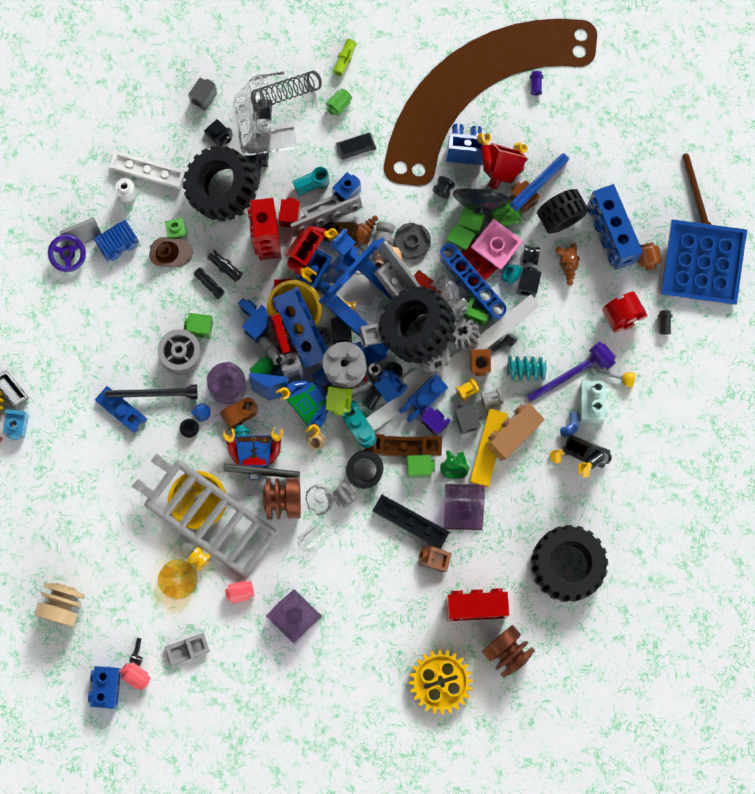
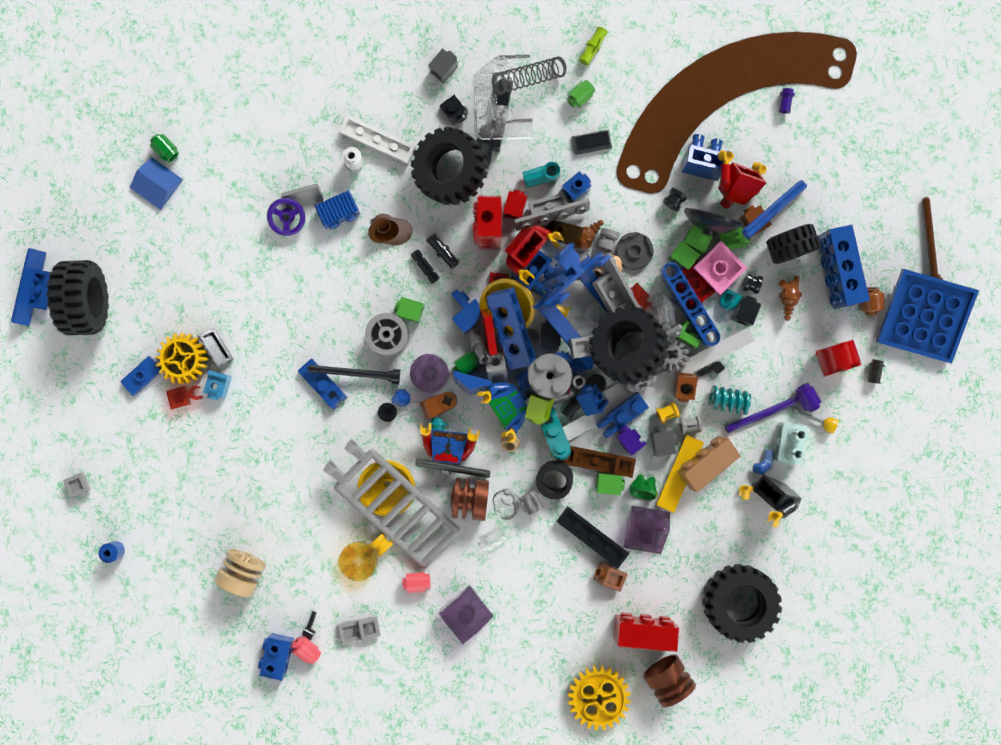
camera: 10 degrees right, 10 degrees up
(176, 228) = (398, 207): bright green bracket -> none

